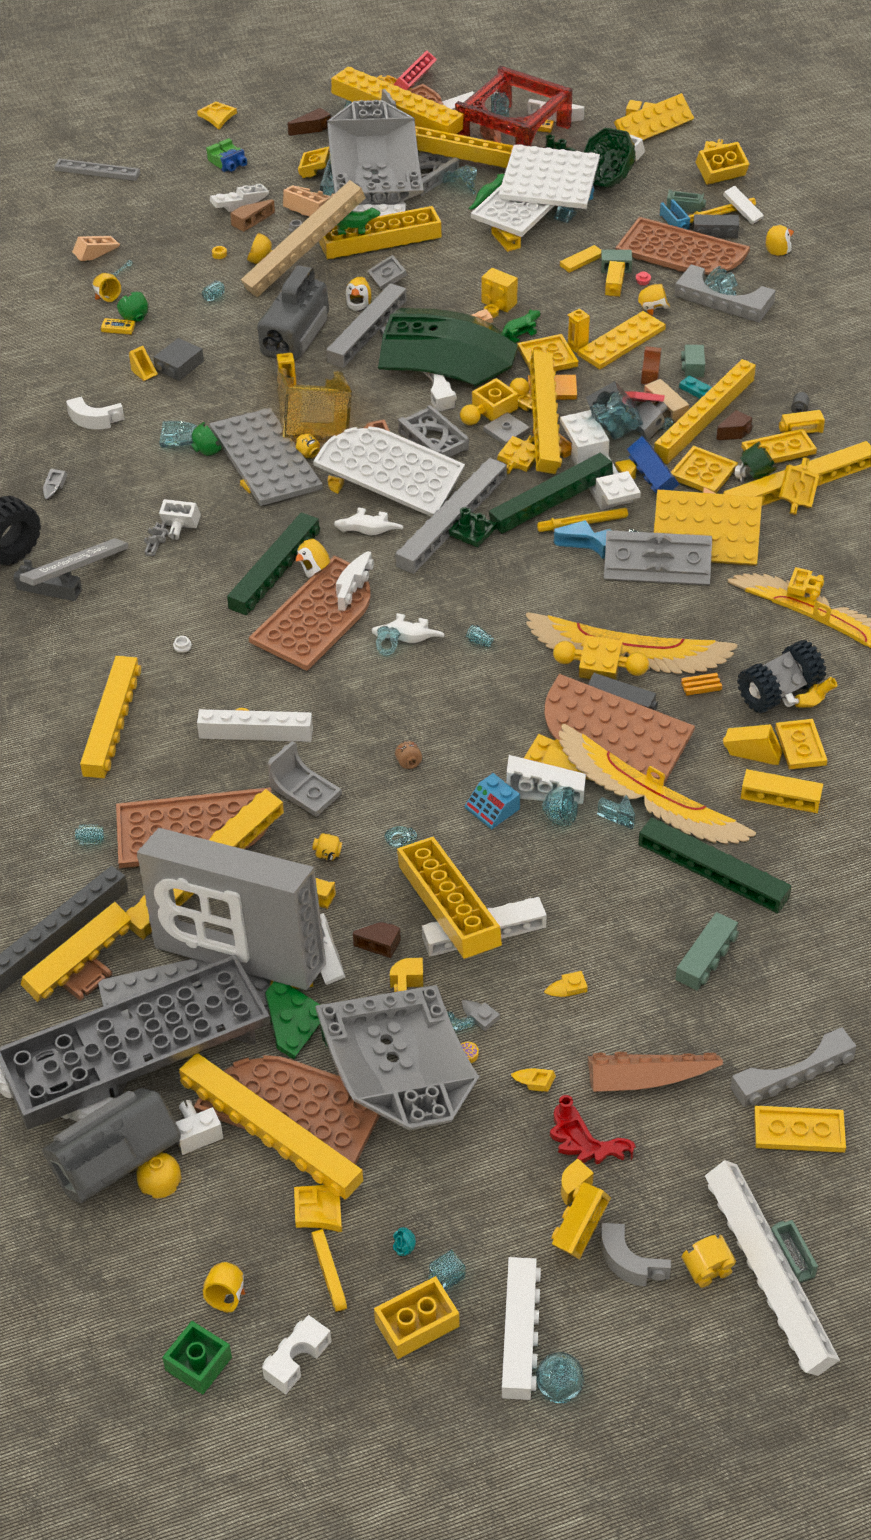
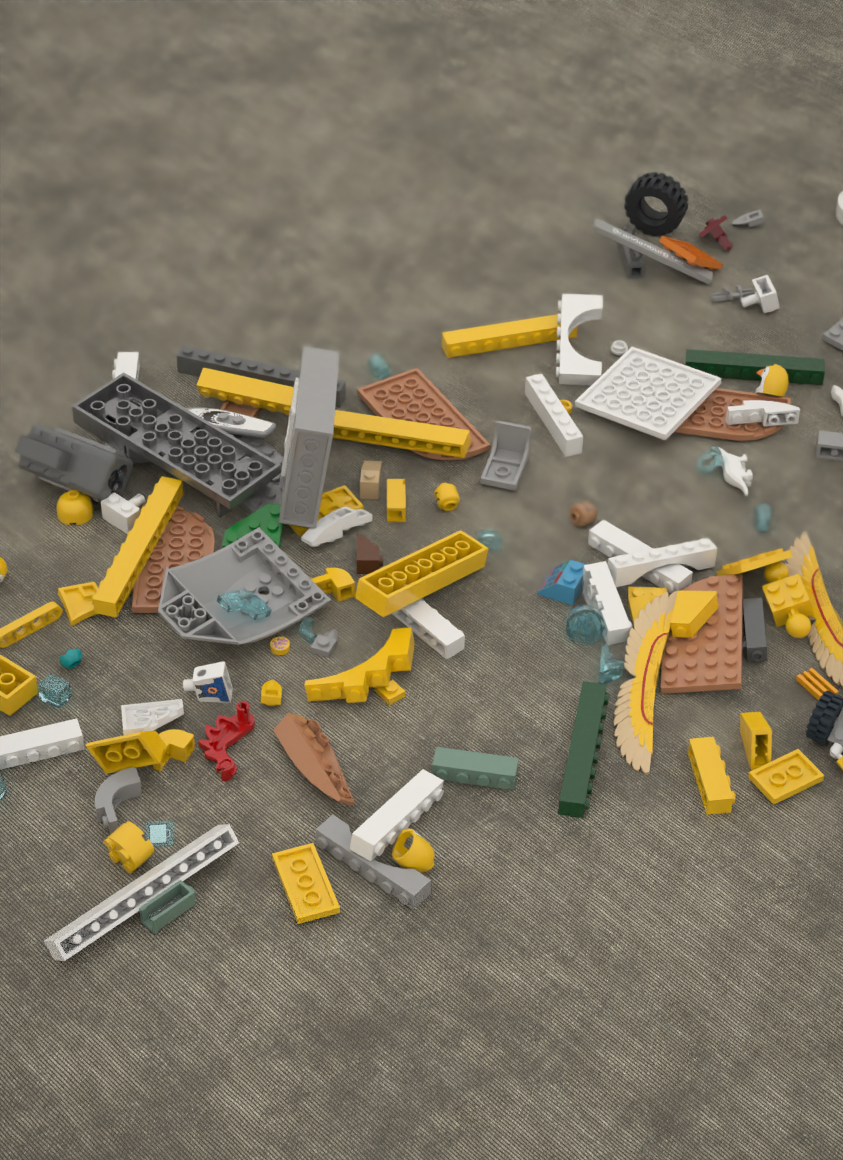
camera: 65 degrees right, 5 degrees down
(57, 510) = (714, 227): none -> dark red piece
(86, 539) = (691, 253): none -> orange plate
(110, 985) = (235, 422): none -> piece
(192, 686) = (573, 367): none -> white arch
(272, 645) = (648, 393): none -> white plate
(403, 1056) = (244, 600): none -> clear light blue plate
(489, 737) = (616, 542): none -> white brick
(506, 1123) = (211, 683): none -> white torso
(511, 718) = (629, 567): none -> white arch
(529, 1193) = (150, 715): none -> white plate
(550, 661) = (754, 562): none -> yellow plate
(564, 1003) = (375, 672): none -> yellow arch
(594, 723) = (692, 611): none -> yellow slope
(682, 1234) = (160, 833): none -> clear light blue sticker
(753, 1026) = (396, 815): none -> white brick
(803, 1029) = (418, 857): none -> yellow piece

